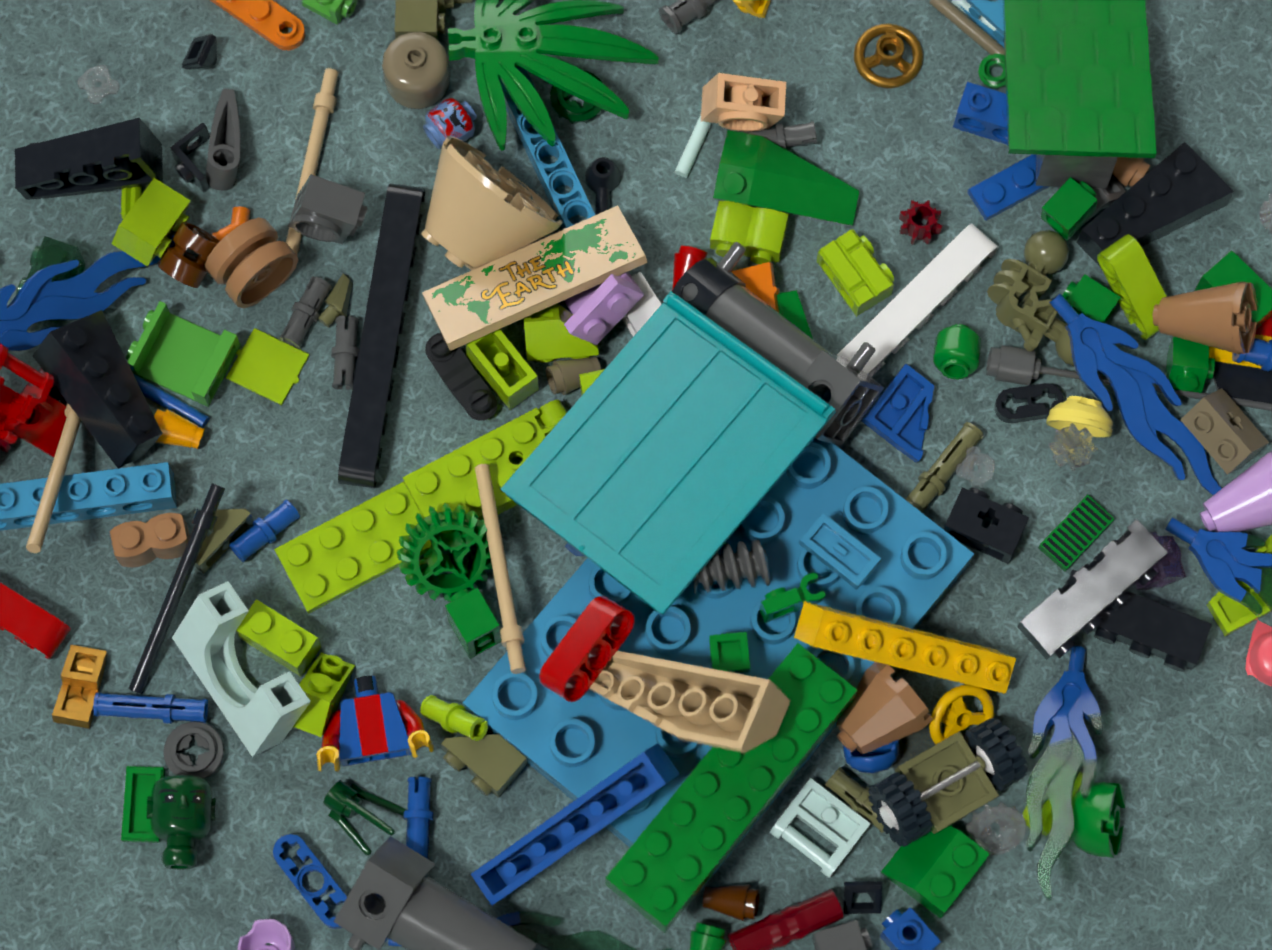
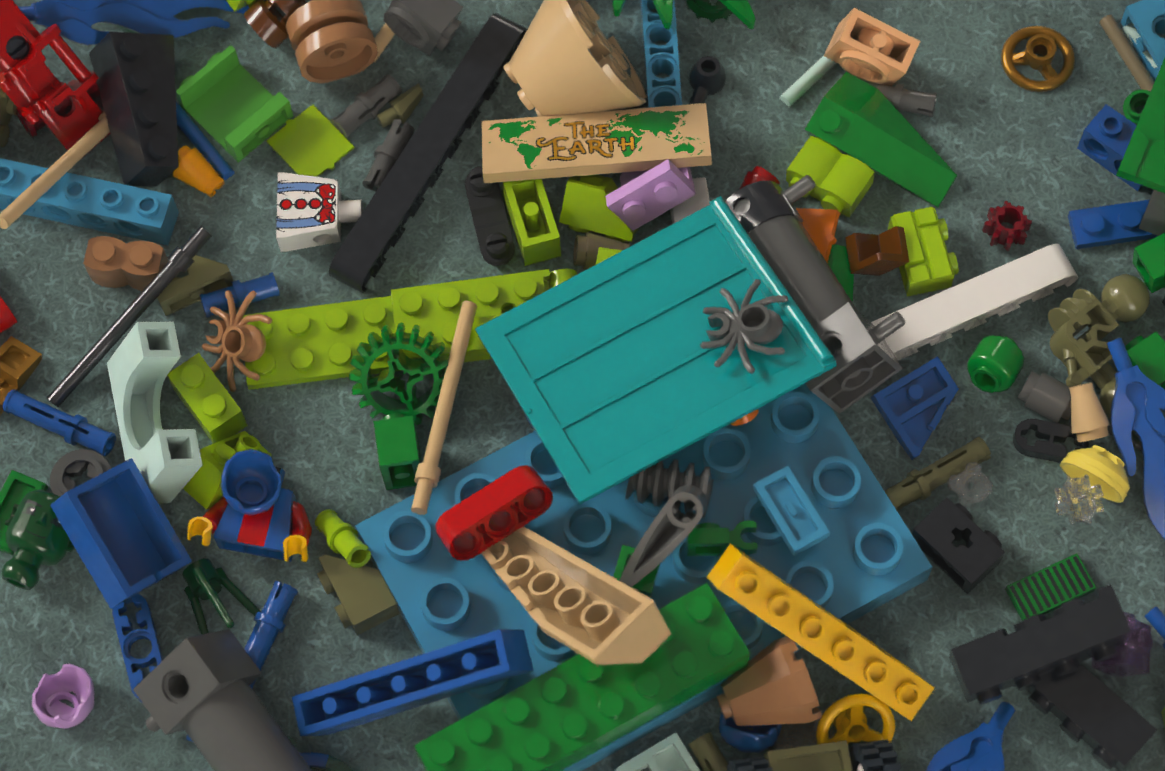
camera: 25 degrees right, 5 degrees down
(258, 788) = (120, 532): none -> blue piece
(282, 572) = (237, 338): none -> medium nougat animal
(299, 429) = (311, 211): none -> torso
(357, 700) = (250, 482): none -> blue hair
(743, 405) = (746, 325): none -> dark grey animal
(746, 613) = (664, 533): none -> dark grey piece
(818, 287) = (877, 253): none -> reddish brown panel
(1054, 370) = (1087, 414): none -> tan cone

